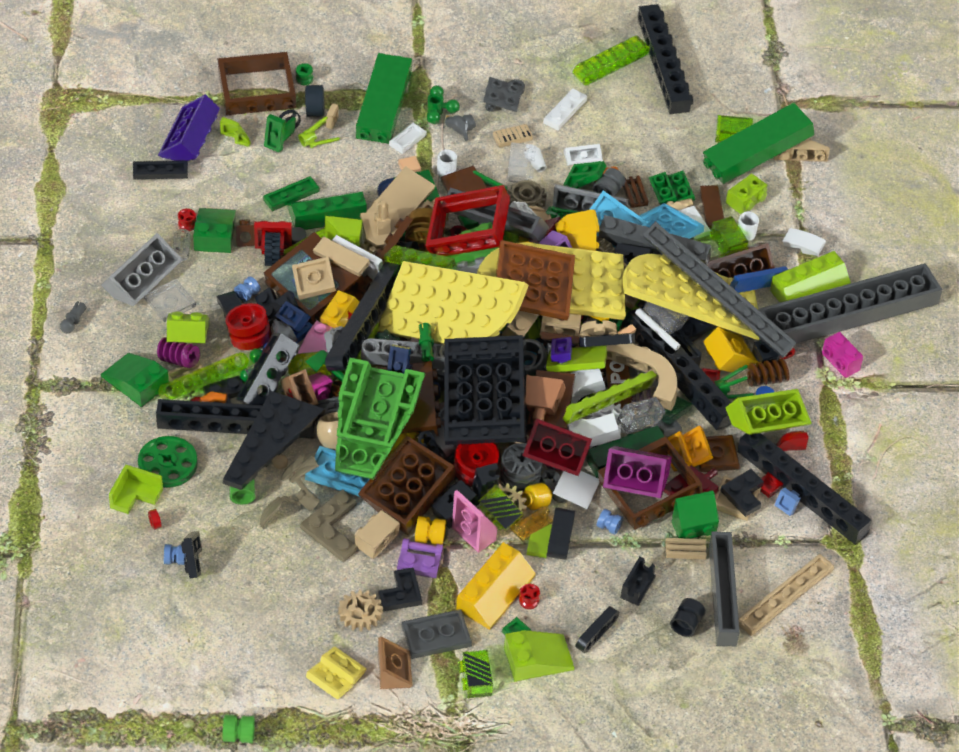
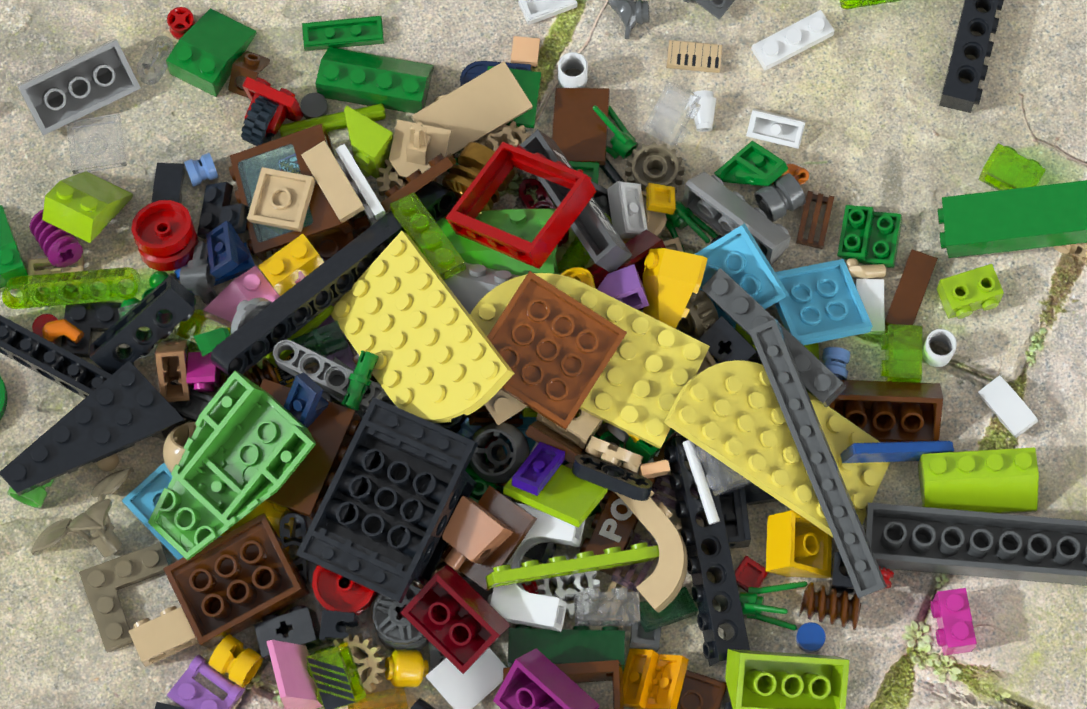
camera: 30 degrees right, 20 degrees up
(541, 204) = (660, 198): none -> yellow tile

